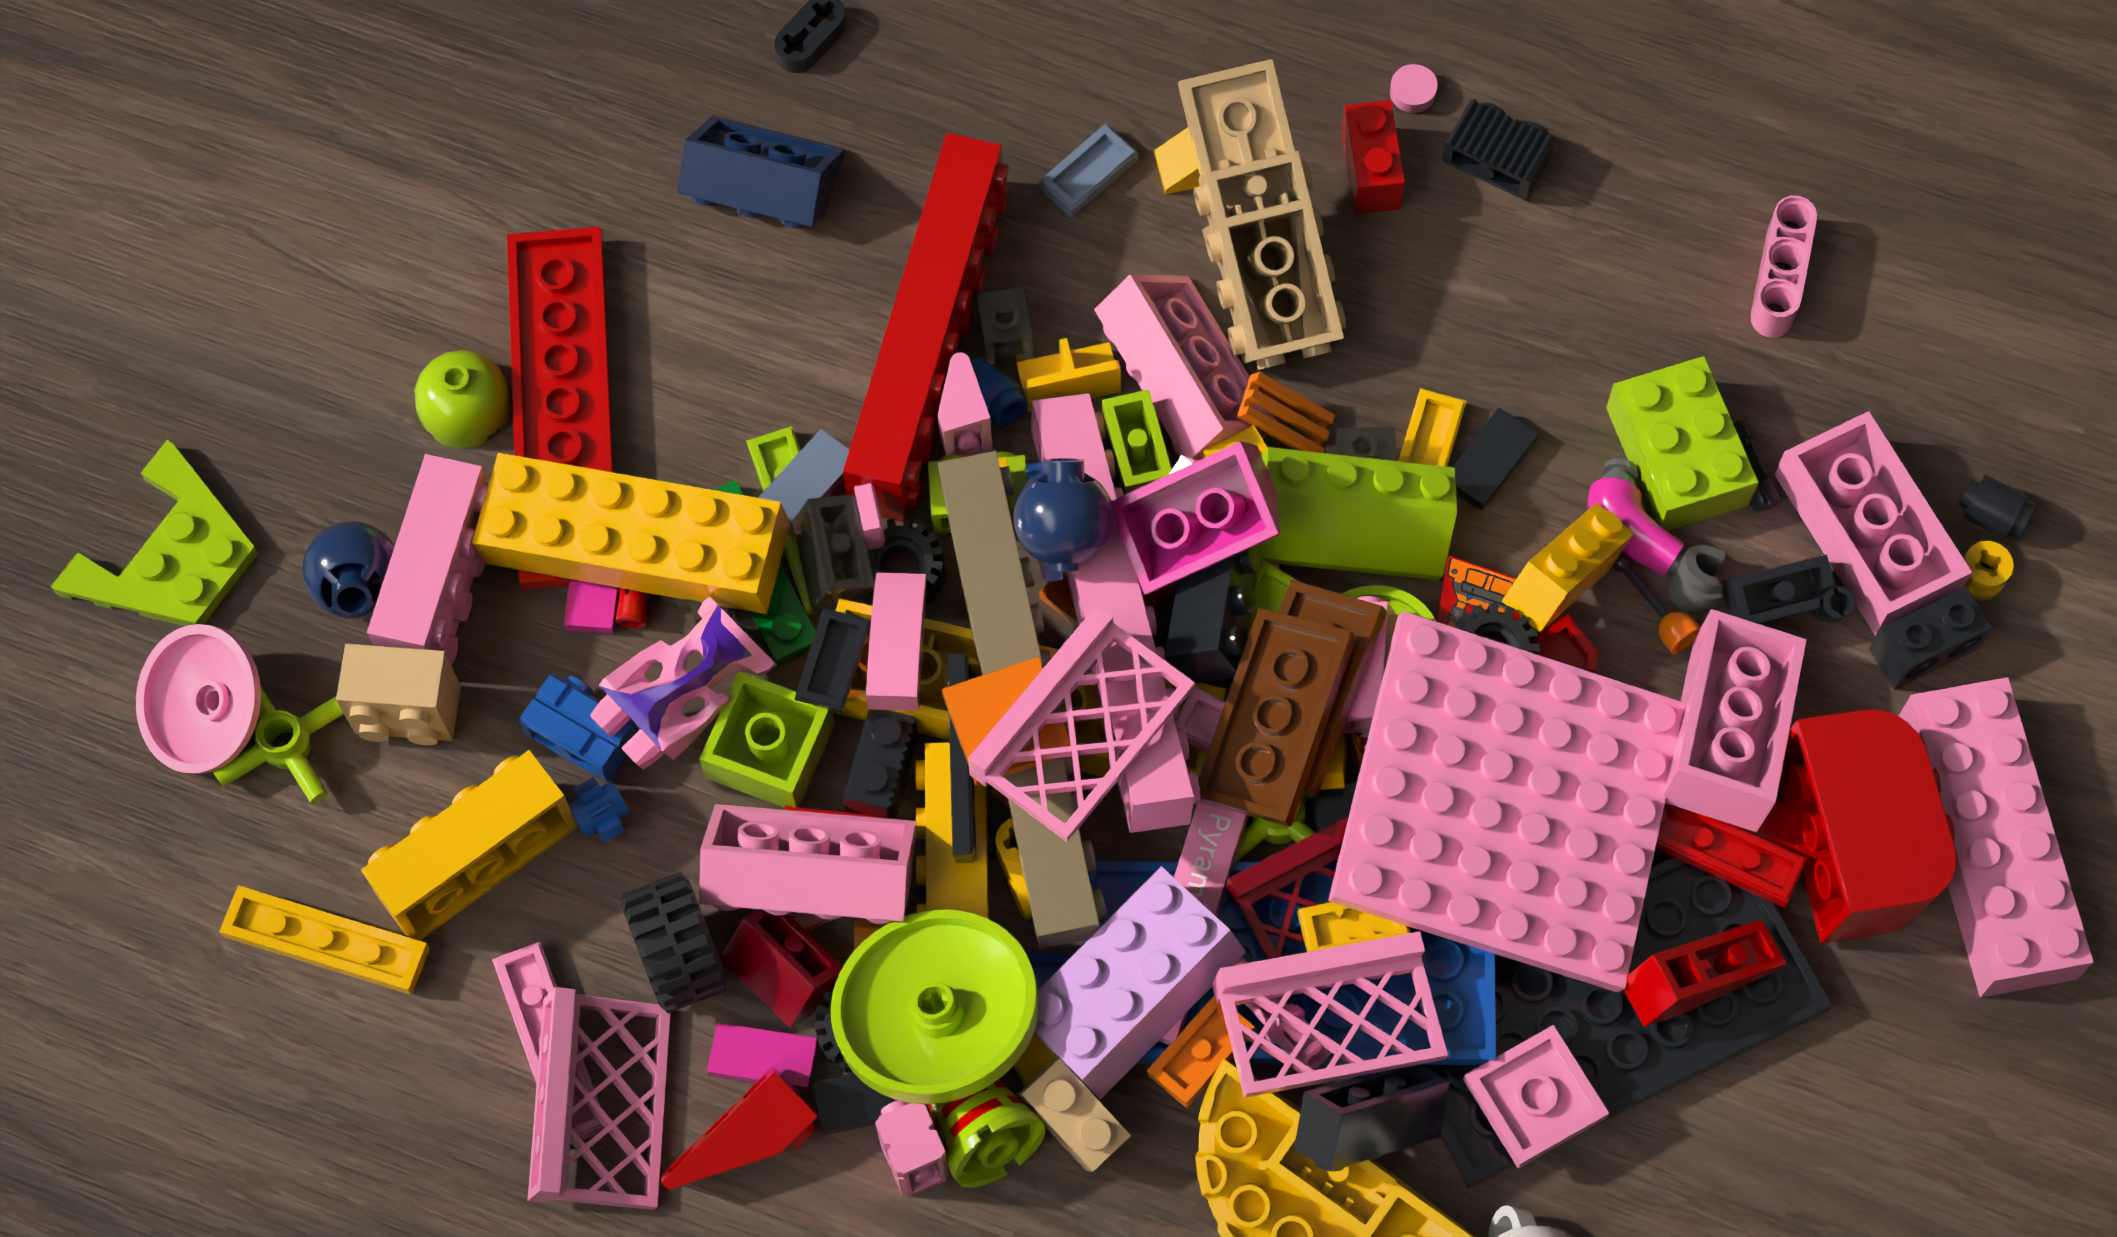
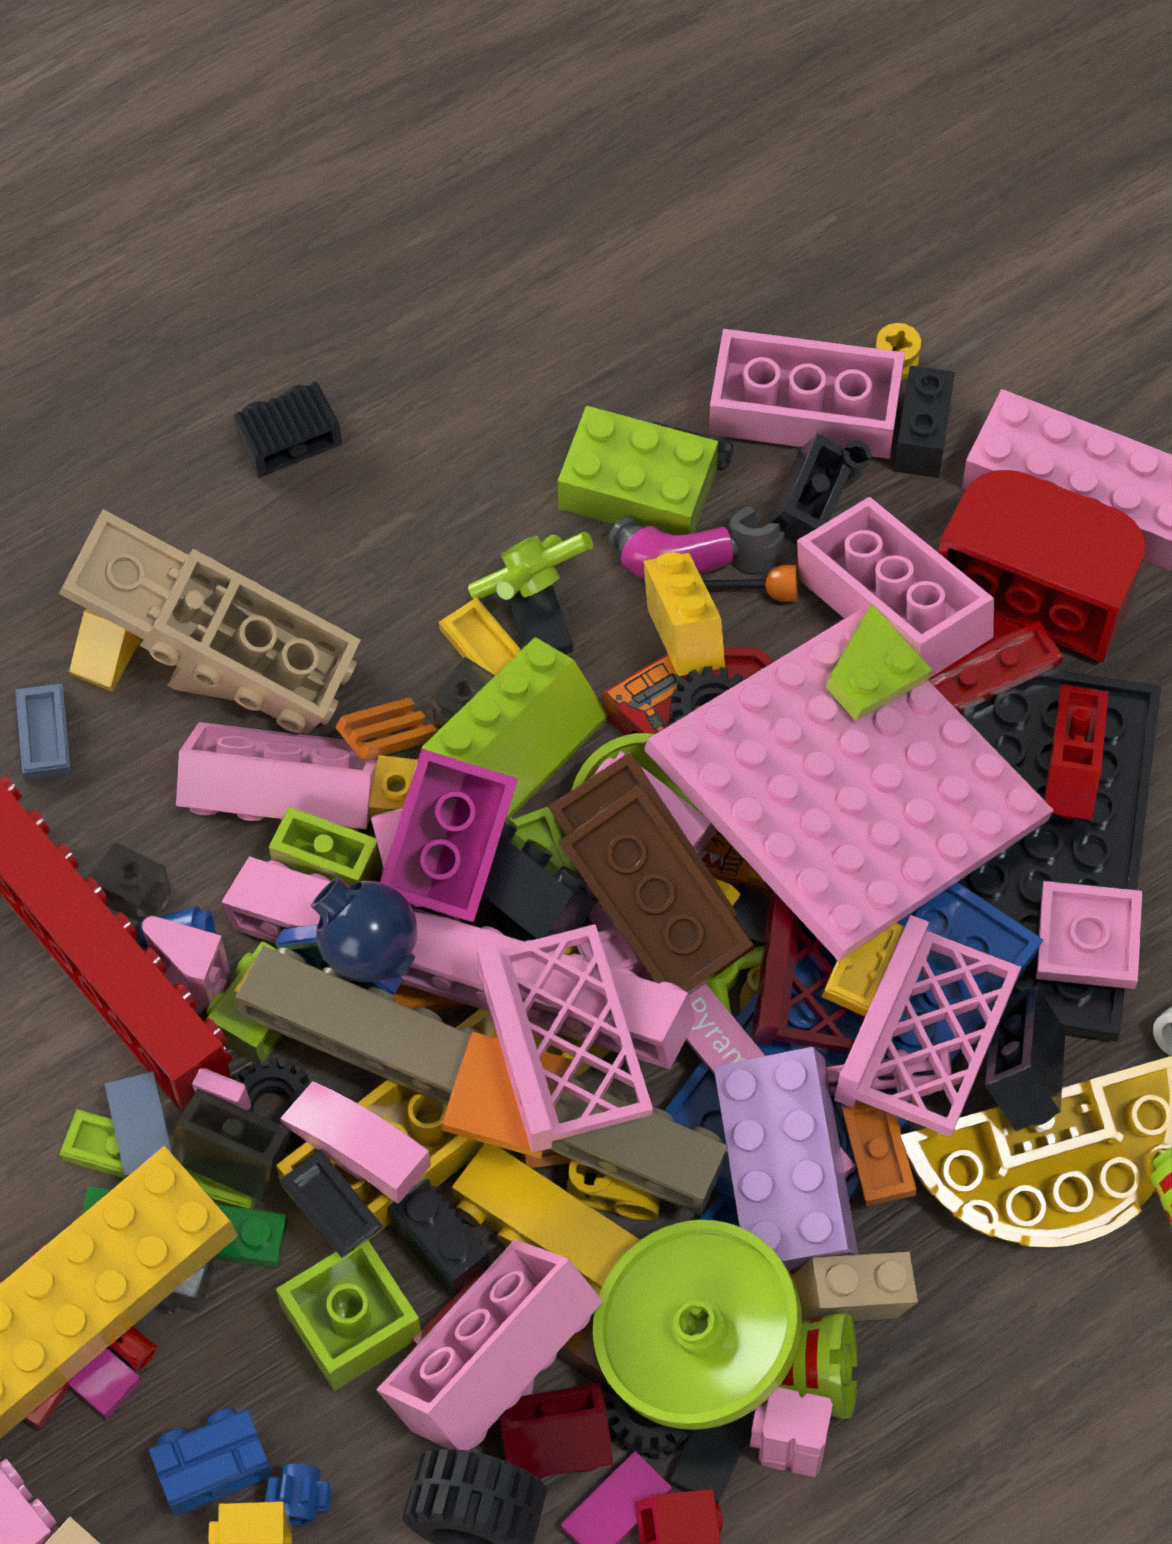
camera: 55 degrees left, 5 degrees down
(660, 704) = (255, 1374): bright pink hips -> none
(961, 781) = (504, 1165): black tile -> none
(1070, 373) = (212, 864): yellow panel -> none
(1372, 157) = (218, 518): red brick -> none
(1413, 88) = (181, 453): bright pink tile -> none
(1517, 419) = (530, 566): none -> lime bar
(1630, 749) = (875, 667): none -> lime wing
(1787, 247) = (556, 326): bright pink beam -> none
(1996, 507) = (855, 308): black brick -> none

